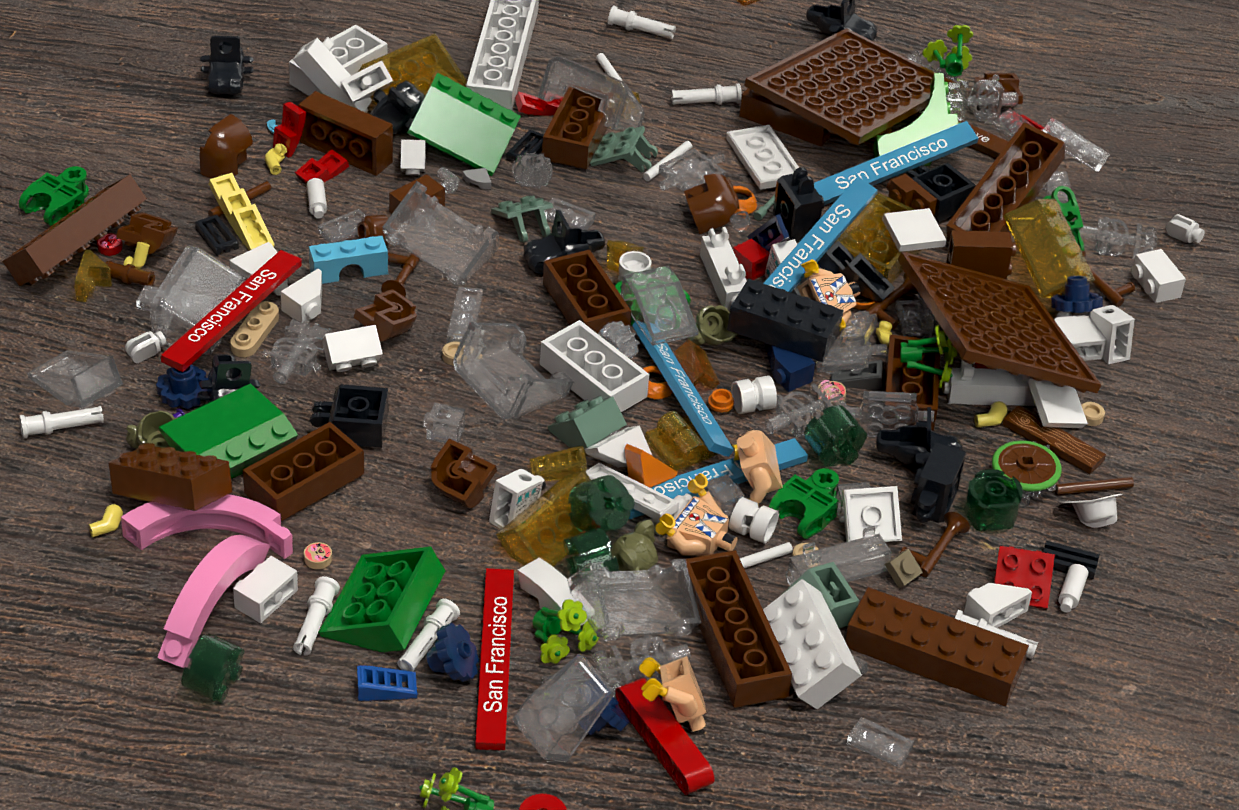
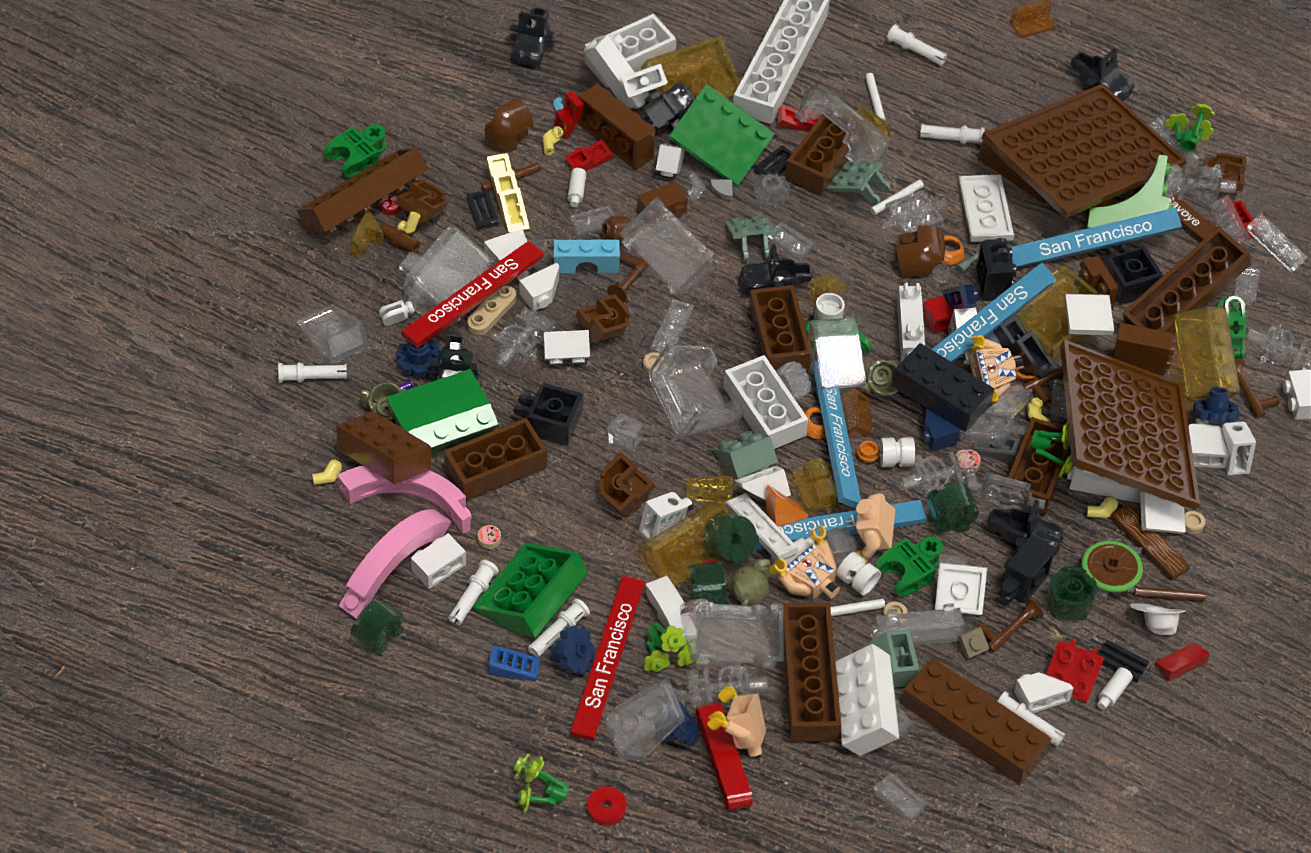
camera: 15 degrees right, 10 degrees up
(1134, 549) = (1182, 661): none -> red slope

